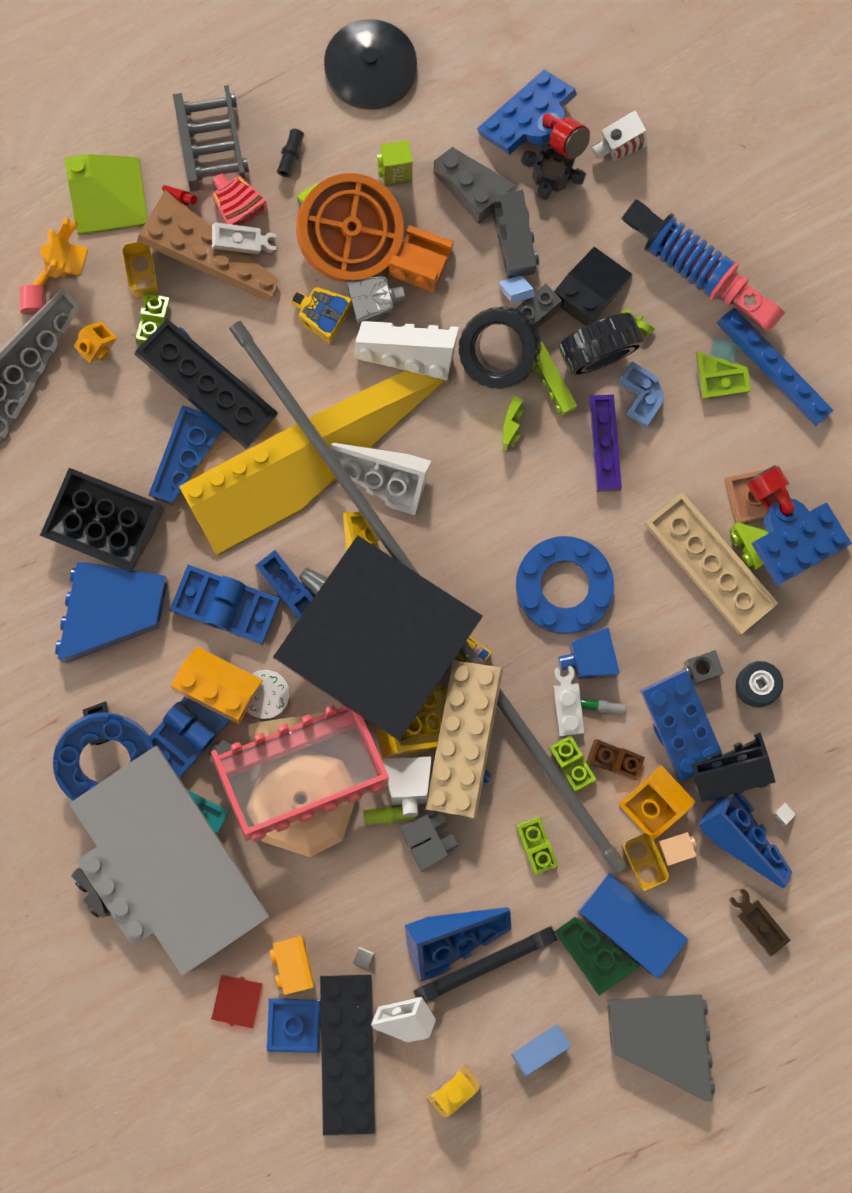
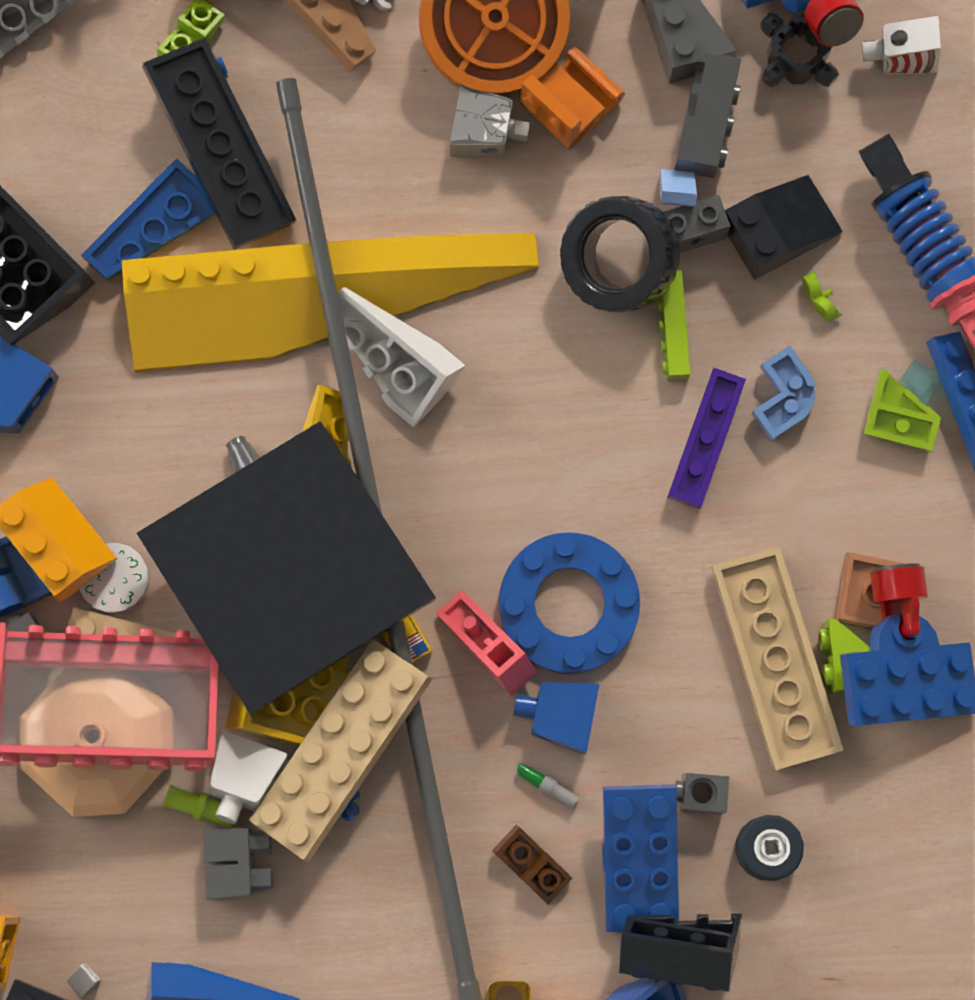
camera: 25 degrees right, 0 degrees up
(95, 342) = (103, 32): light orange brick -> none
(225, 604) = (115, 439): blue plate -> none
(285, 583) = (204, 442): blue slope -> none
(322, 312) = (412, 114): torso -> none
(407, 347) = (499, 205): white wedge -> none
(510, 431) = (588, 368): lime slope -> none
(525, 632) = (487, 643): none -> coral slope
(536, 845) = (376, 932): lime slope -> none
(568, 704) = (501, 763): white plate -> none
(572, 764) = (473, 845): lime slope -> none
(601, 343) = (755, 304): black tyre -> none
(657, 802) = (561, 947): light orange slope -> none

